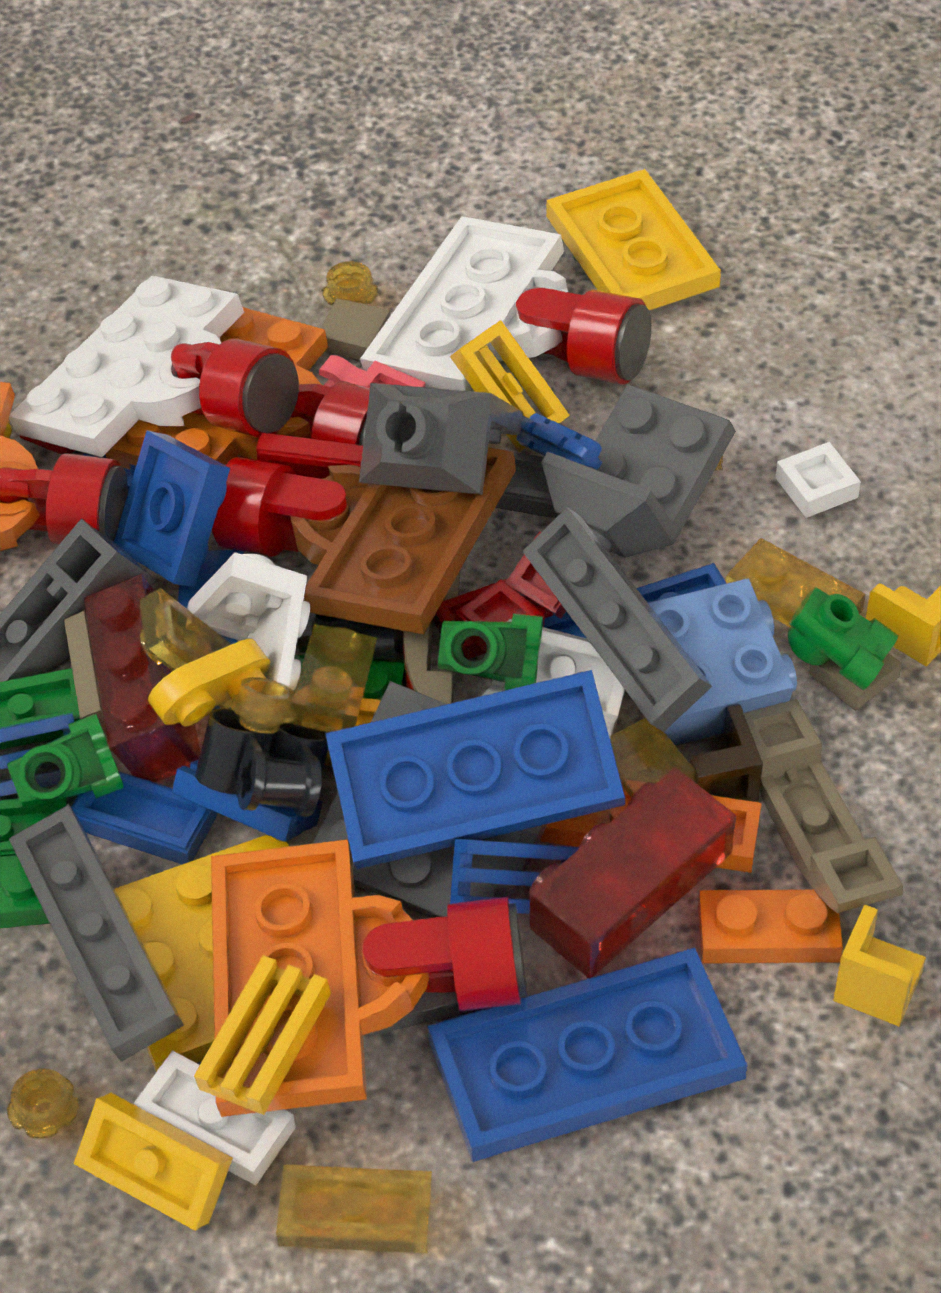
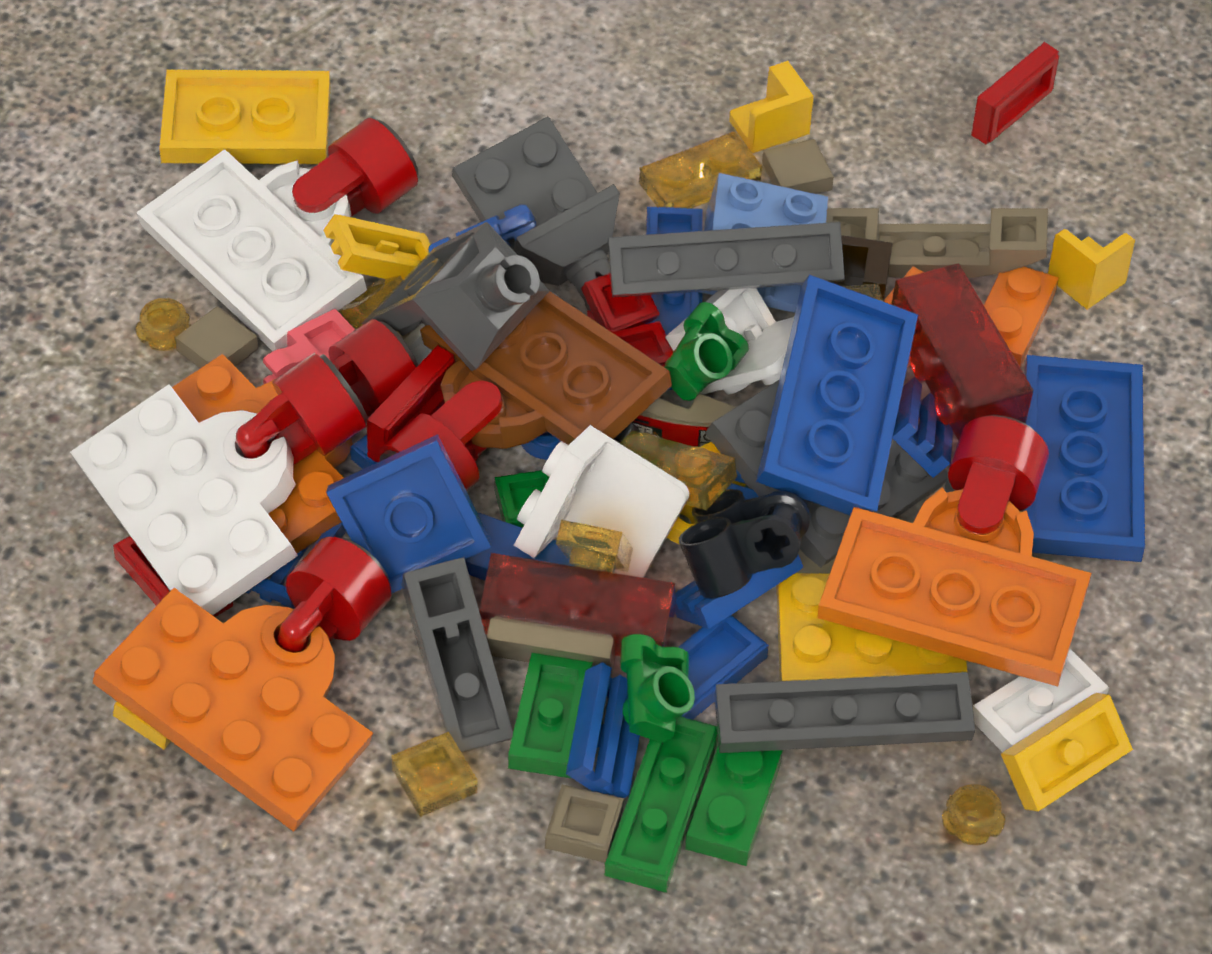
camera: 70 degrees left, 0 degrees up
(206, 682) = (658, 535): yellow plate -> none
(263, 704) = (705, 504): clear yellow plate -> none
(287, 982) = (1030, 609): yellow tile -> none
(355, 1209) = (1159, 640): clear yellow plate -> none
(817, 479) = (598, 110): white plate -> none
(834, 630) = (790, 149): green plate -> none

